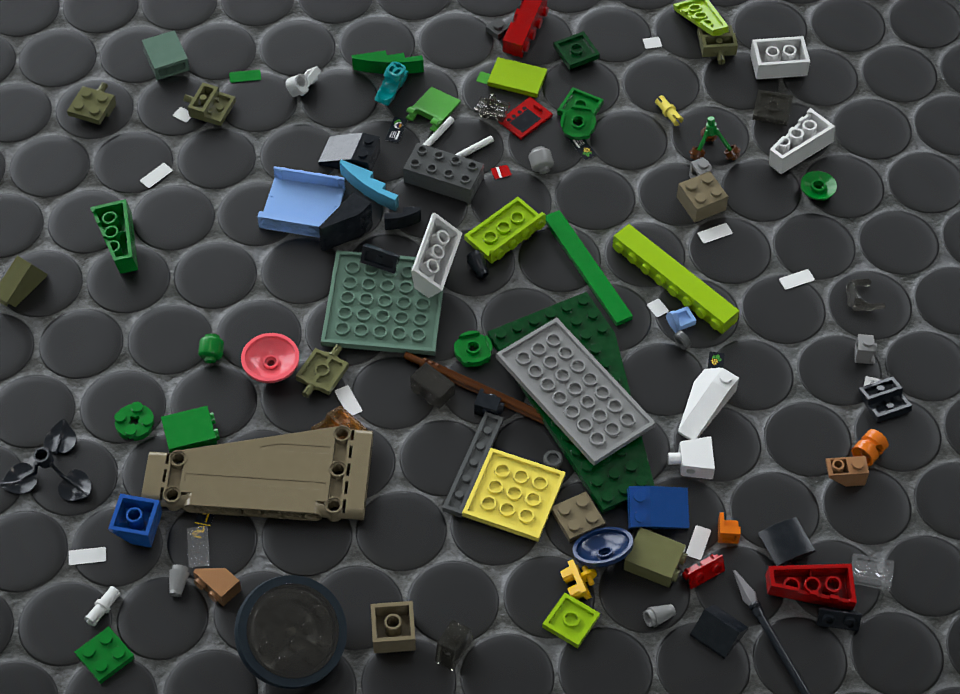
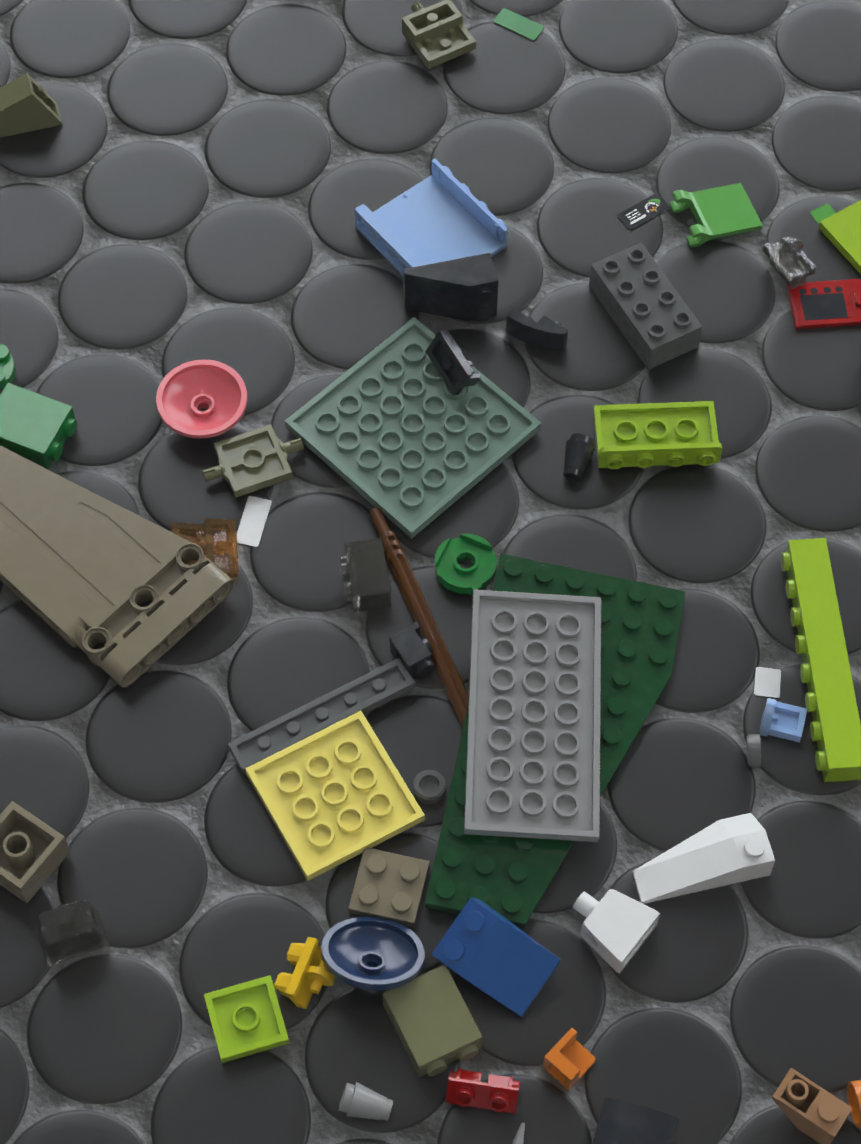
camera: 40 degrees right, 5 degrees up
(118, 232) = (176, 125): green wedge -> none
(156, 175) = (296, 82): white sticker -> none
(182, 114) = (395, 26): white sticker -> none
(211, 348) = (150, 338): green head -> none
(299, 83) = (593, 74): white plate -> none
(355, 148) = (554, 205): black slope -> none
(363, 181) = (535, 260): medium azure slope -> none
(378, 62) = (702, 112): green slope -> none
(394, 78) = (691, 140): teal piece -> none
(435, 256) = (514, 403): white slope -> none
(439, 131) = (690, 250): white bar -> none
(475, 147) = (718, 299): white bar -> none
(501, 171) = (728, 354): red sticker -> none
(541, 159) = (791, 372): light grey head -> none
(588, 268) = (720, 562): green tile -> none
(698, 542) = (515, 1046): white sticker -> none
(715, 360) = (777, 815): black sticker -> none

